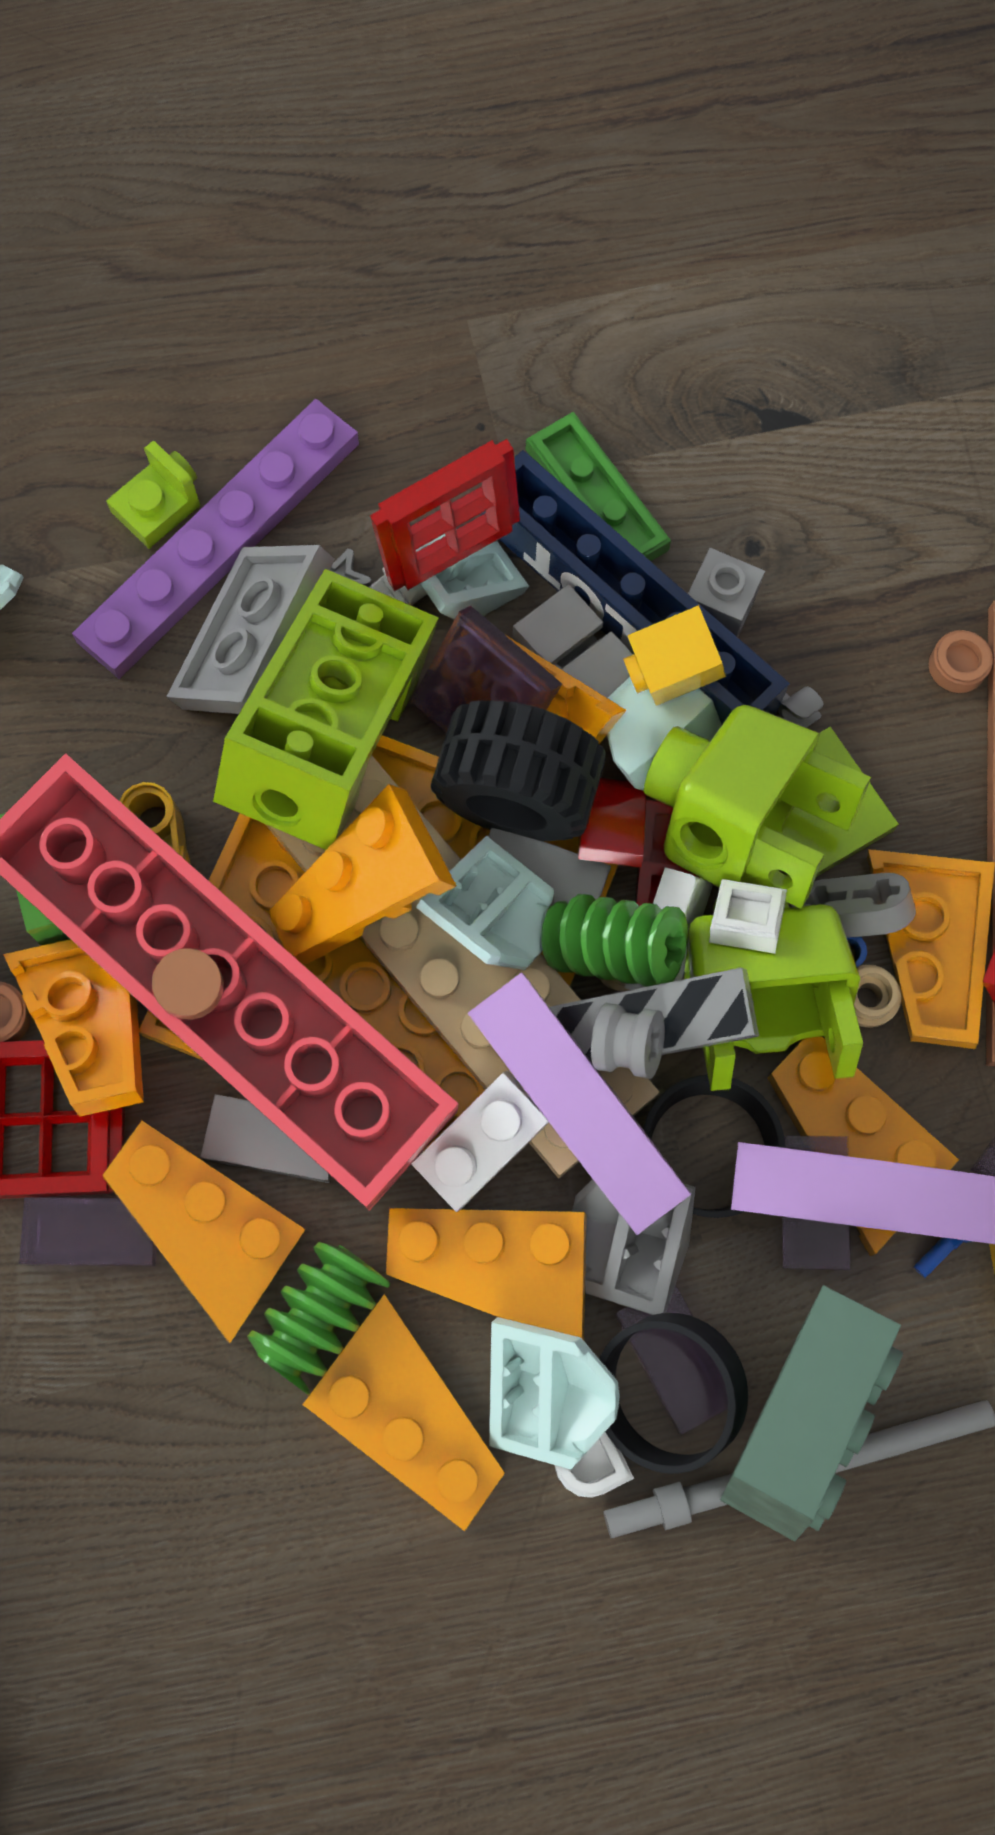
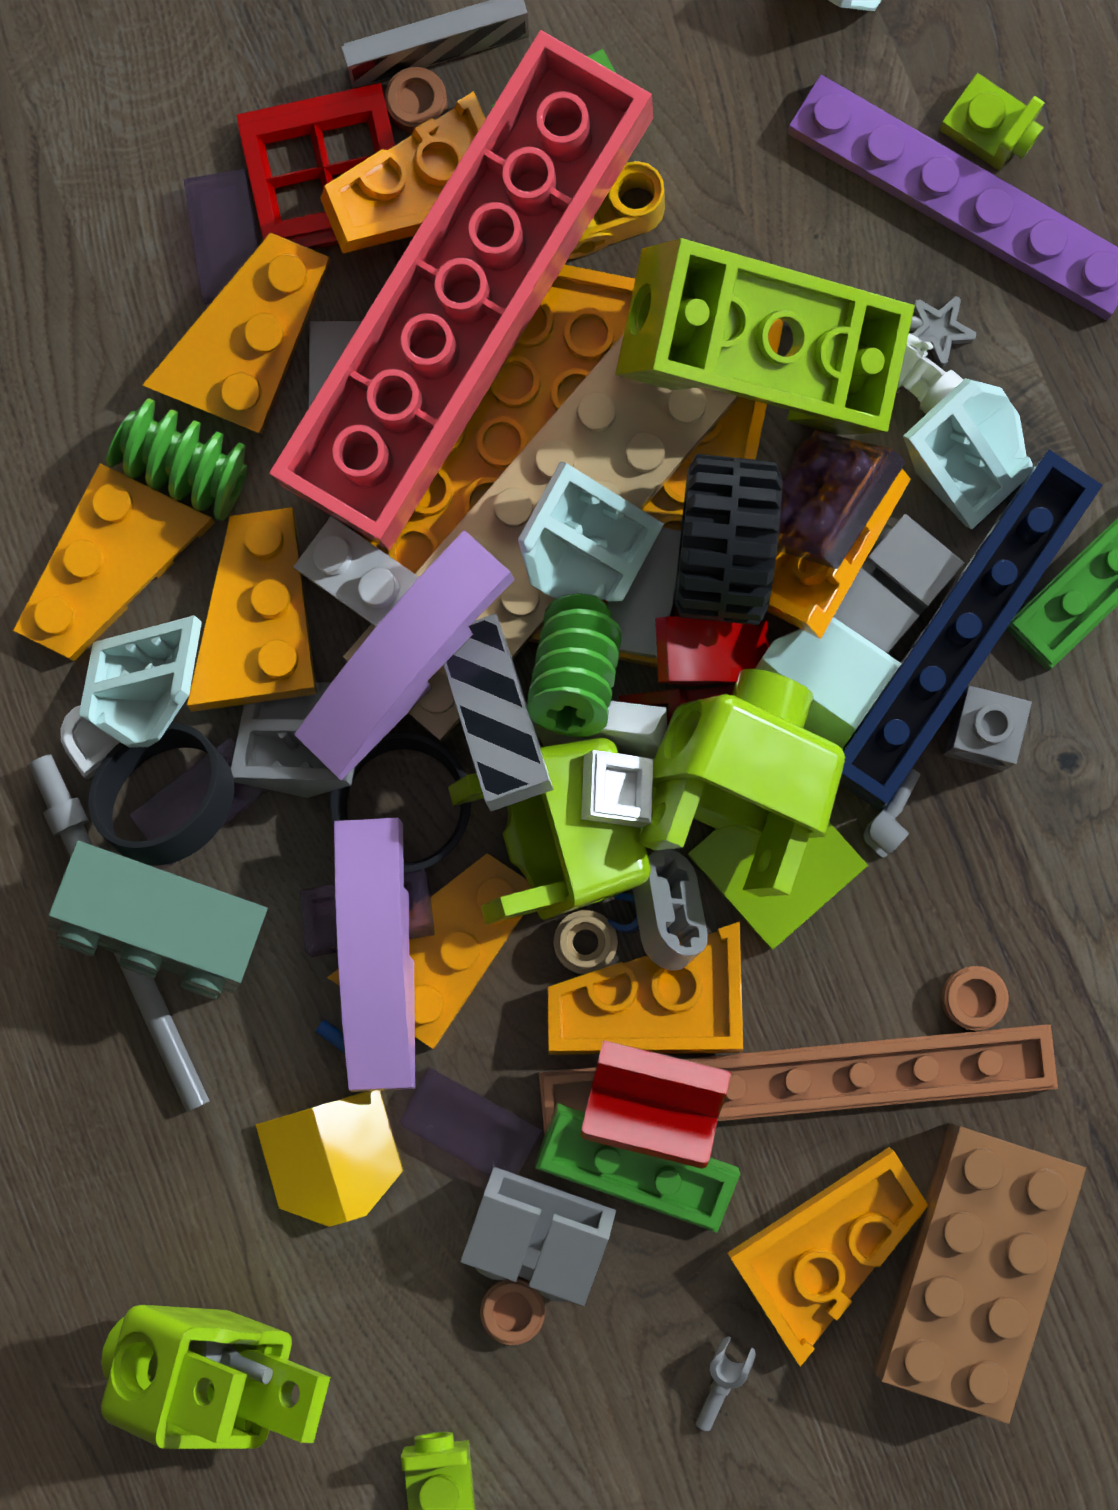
camera: 85 degrees right, 10 degrees up
(187, 983) = (443, 261): nougat tile -> none
(247, 625) = (857, 246): light grey plate -> none
(363, 876) = (587, 407): light orange wing -> none
(497, 496) = (979, 412): red piece -> none
(627, 1040) = (461, 684): light grey wheel -> none
(674, 657) = (882, 675): yellow brick -> none

